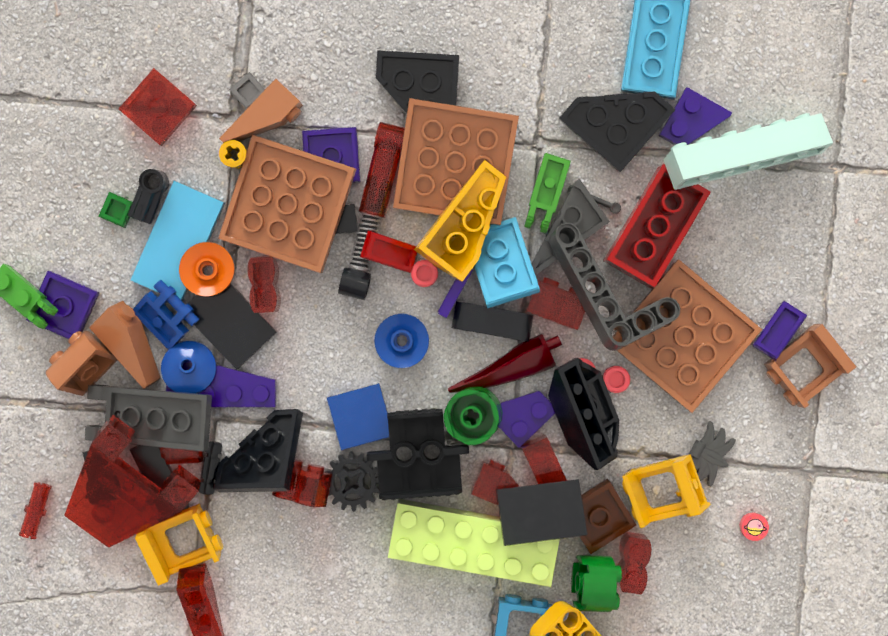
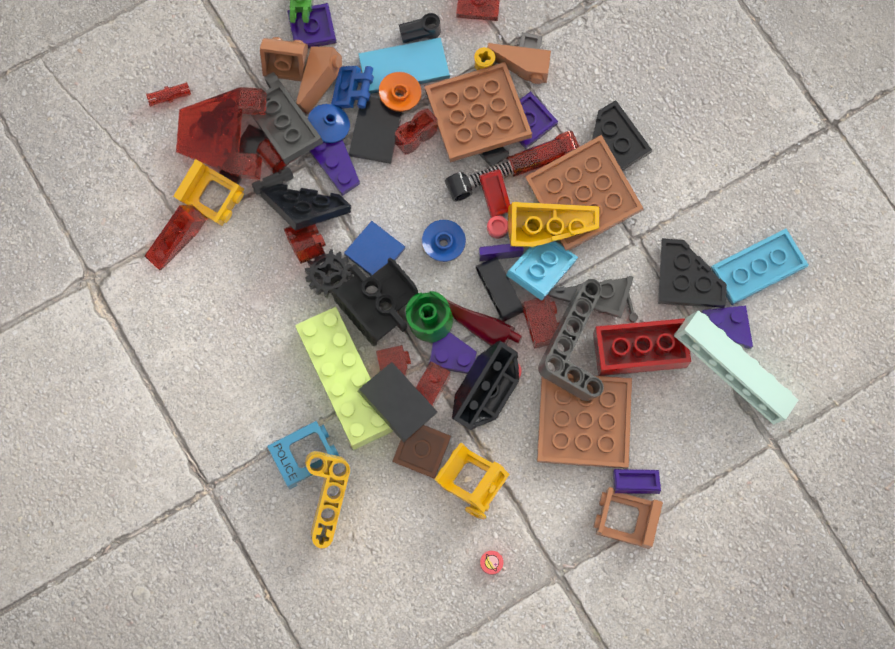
camera: 55 degrees right, 15 degrees down
(116, 209) = (395, 16): green tile -> none
(547, 189) = (611, 264): bright green hinge -> none
(595, 583) = (374, 475): green brick -> none
(616, 379) = (521, 397): coral tile -> none
(635, 555) = (401, 496): clear red brick -> none
(709, 453) = (517, 495): dark grey piece -> none

